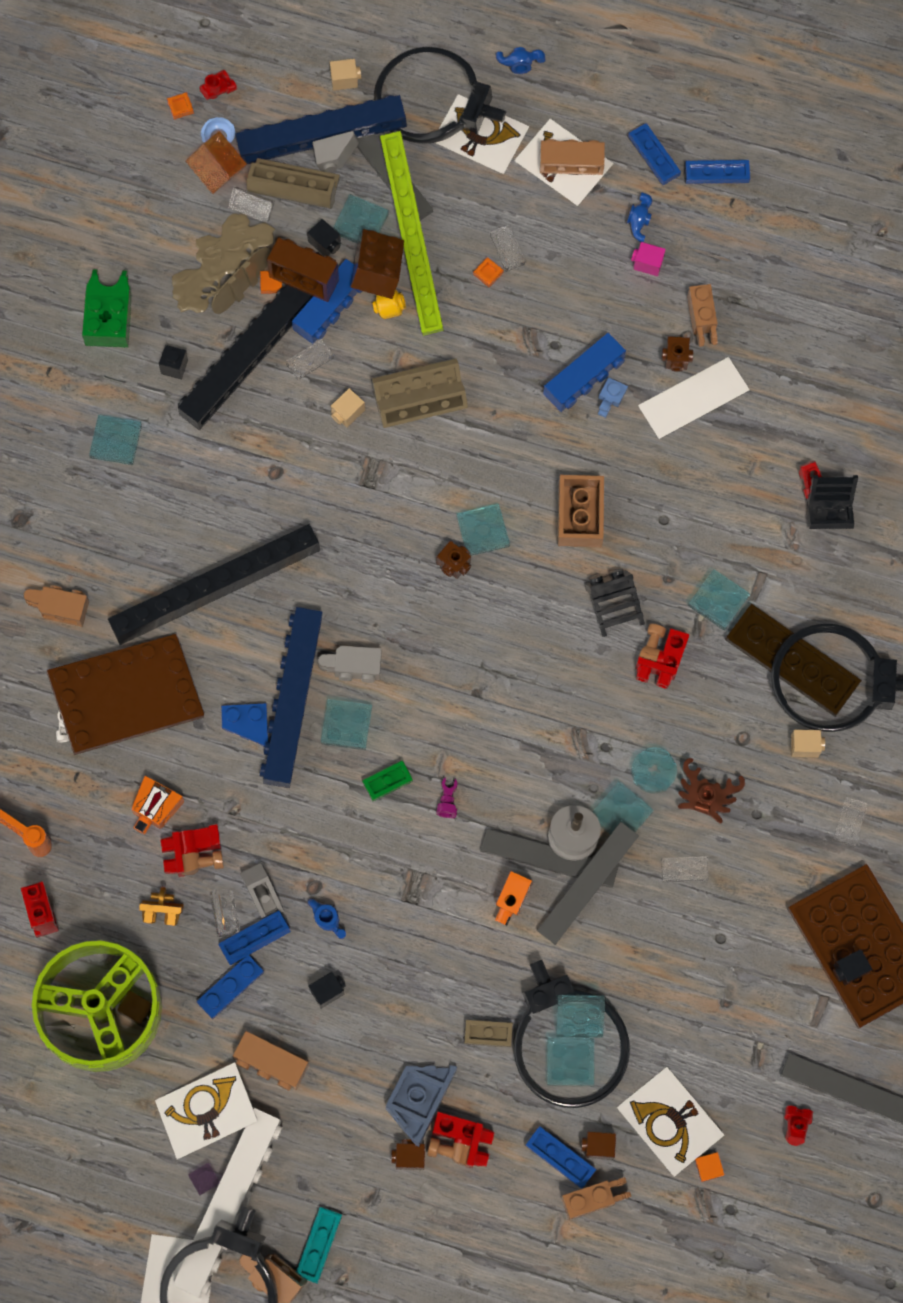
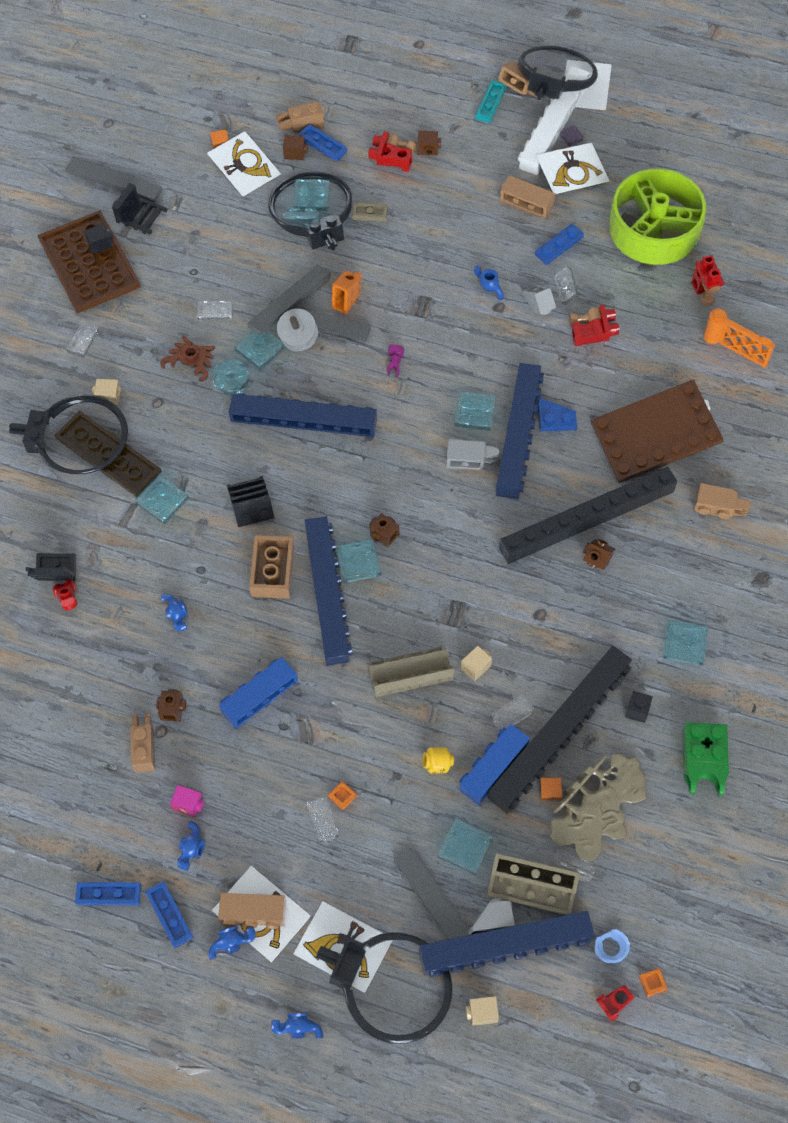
camera: 175 degrees left, 10 degrees down
(154, 805) = (624, 356): orange torso -> none
(171, 910) = (614, 289): pearl gold hips -> none
(205, 534) = (598, 553): none -> reddish brown brick
(216, 162) = (610, 907): clear orange slope -> none
(254, 937) = (542, 270): blue plate -> none
(303, 269) = (520, 773): reddish brown brick -> none
(324, 238) = (500, 827): black brick -> none
(327, 989) = (488, 237): black brick -> none
(377, 263) = (448, 787): reddish brown brick -> none
(387, 781) = (442, 371): green plate -> none
(412, 233) = (416, 833): lime plate -> none
(418, 1098) = (421, 173): sand blue wing -> none
(517, 491) = (327, 591): none -> dark blue brick
(559, 714) = (303, 415): none -> dark blue brick
(591, 130) = (230, 940): none -> blue piece
(611, 395) = (236, 675): medium blue plate -> none
(658, 661) = (214, 450): red hips -> none
(685, 463) = (176, 611): none -> blue piece
(693, 397) = (161, 675): white sticker -> none
(797, 1124) = (153, 159): red plate -> none
(821, 1034) = (129, 205): none -> black plate

